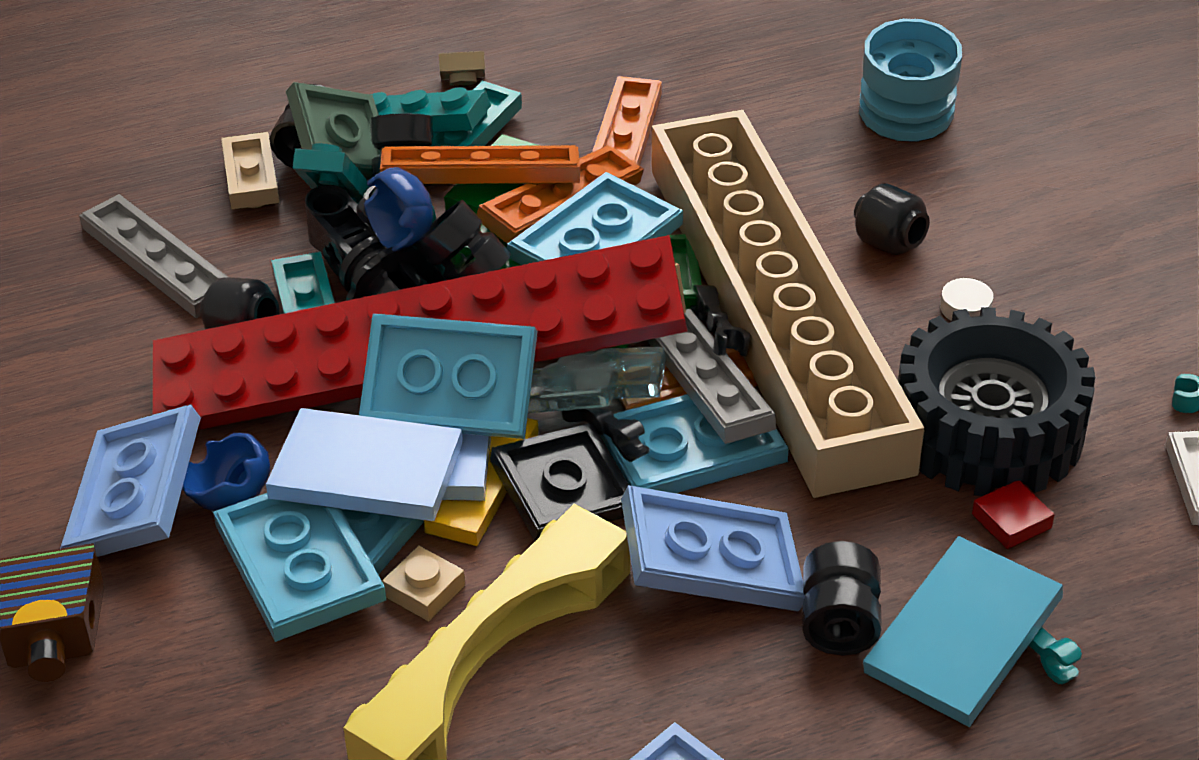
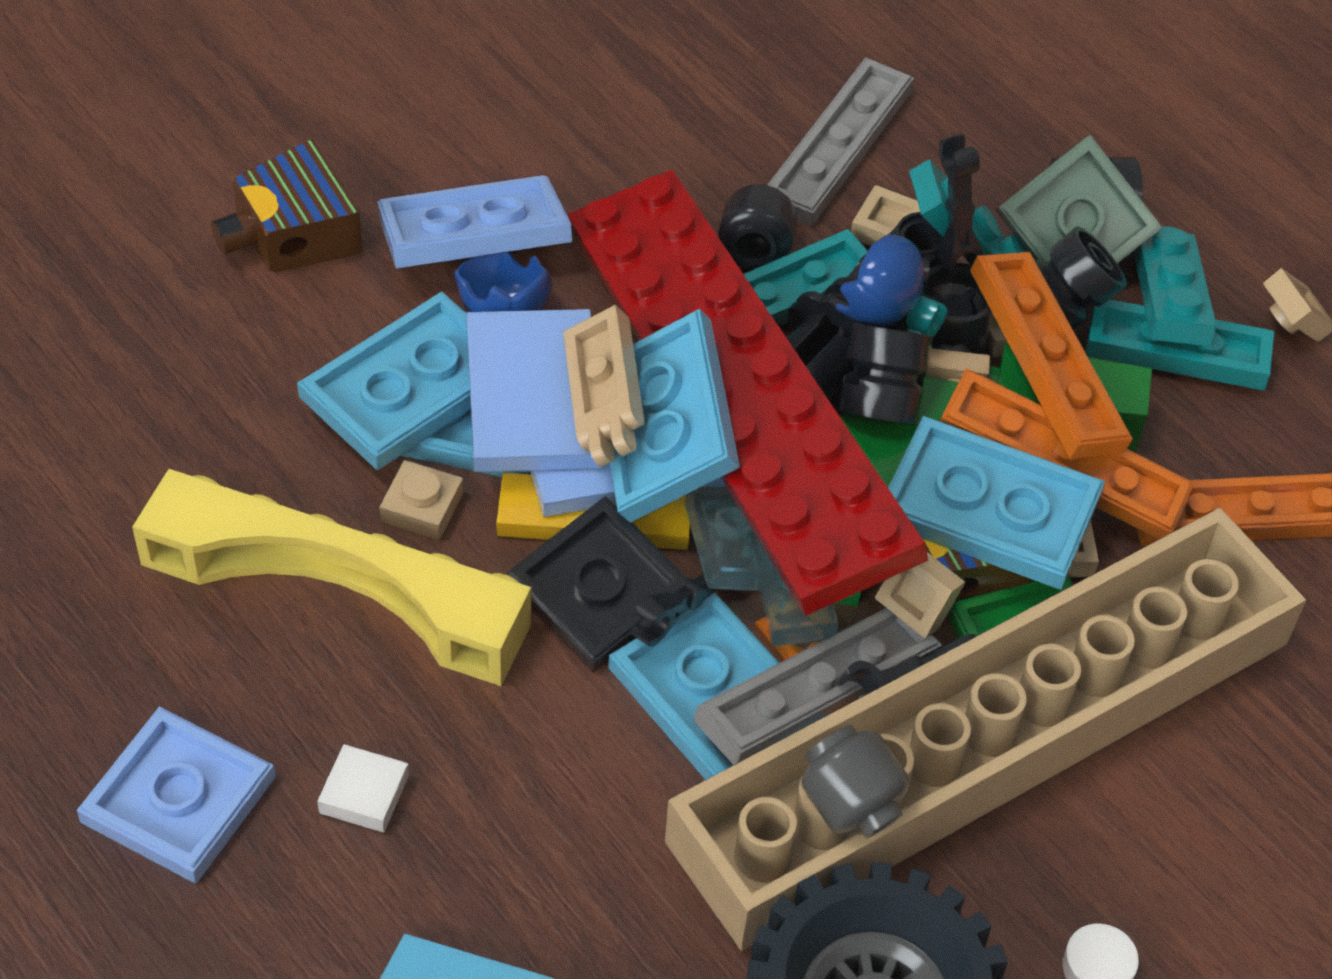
camera: 70 degrees right, 10 degrees up
(250, 170) = (1010, 166): tan plate -> none
(268, 240) = (881, 214): none -> tan plate
(363, 166) = (959, 237): none -> black piece
(405, 400) = (604, 384): none -> tan hinge
(711, 670) = (363, 788): none -> white tile
(712, 548) = (520, 742): light blue tile -> none
(841, 598) = (480, 888): black wheel -> none
(846, 333) = (855, 781): none -> dark grey head
(891, 219) = (1207, 834): black head -> none

